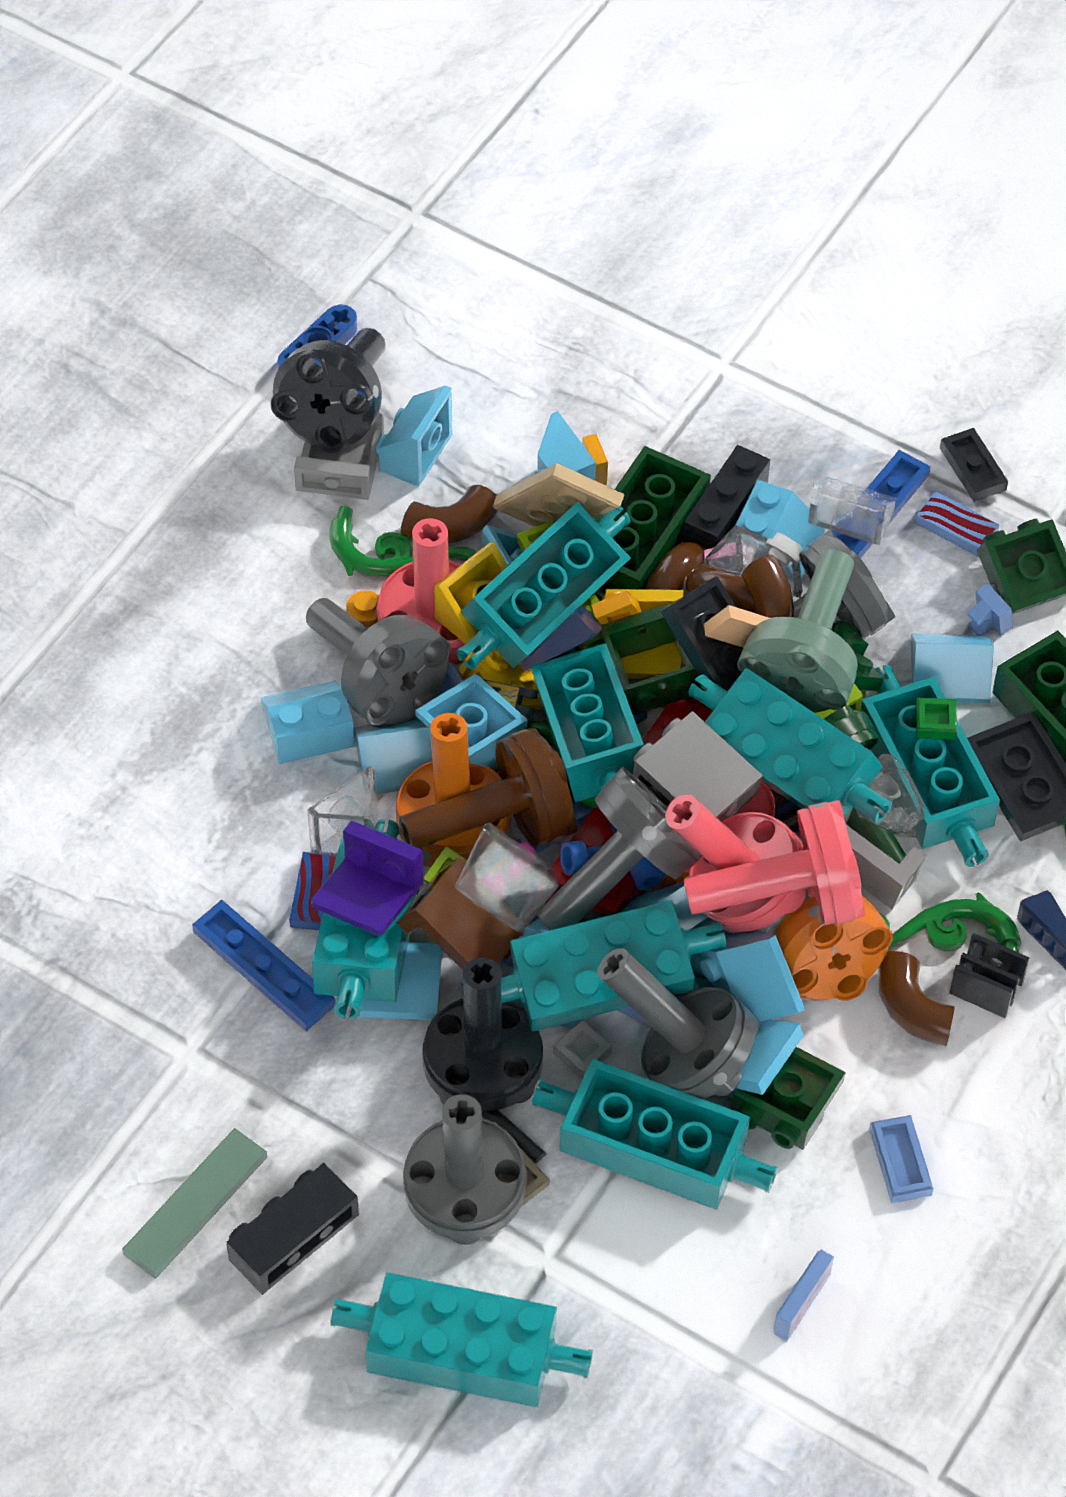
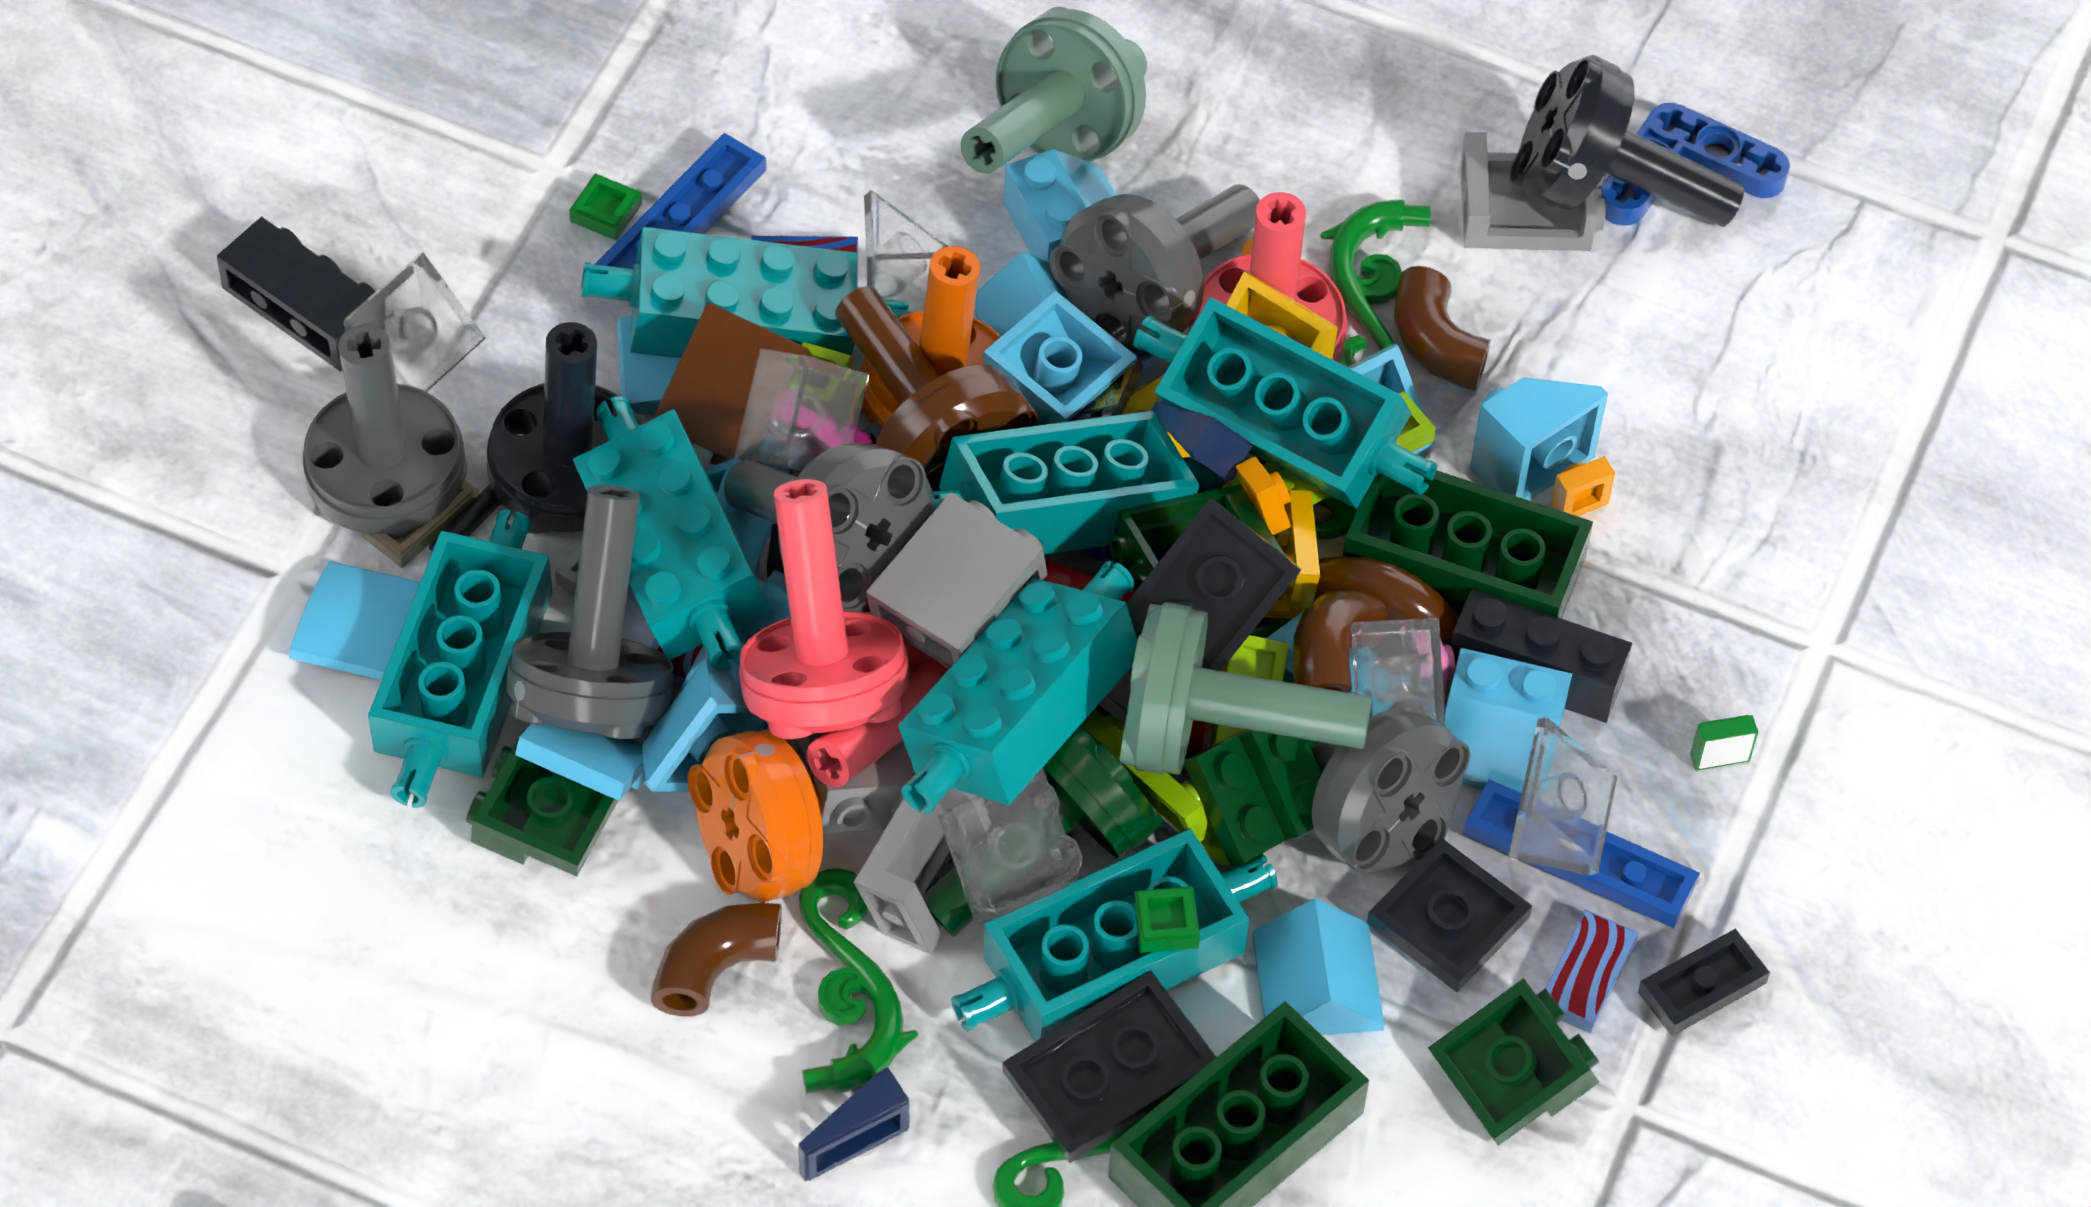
camera: 80 degrees right, 0 degrees up
(194, 1203) = (337, 199): sand green tile -> none
(218, 690) = (1061, 92): none -> sand green piece
(236, 1017) = (605, 206): none -> green tile
(347, 1150) = (423, 321): none -> clear slope
(372, 880) = (755, 263): dark purple bracket -> none
(417, 436) = (1563, 274): medium azure slope -> none
(461, 1339) = (154, 481): teal brick -> none
(553, 493) = (1435, 402): tan tile -> none
(606, 1206) = (353, 620): none -> medium azure slope
(732, 625) = (1221, 625): light nougat tile -> none
(769, 587) = (1306, 651): reddish brown cylinder -> none
(784, 549) = (1412, 684): white plate -> none
(800, 421) = (1724, 742): none -> tile
(803, 1294) = (245, 851): medium blue tile -> none
(824, 864) = (791, 705): coral piece -> none
(901, 1159) = (472, 963): medium blue tile -> none
(917, 585) = (1449, 914): none -> black plate
(985, 981) = (744, 1042): black piece -> none
(990, 612) = (1419, 1014): medium blue tile -> none

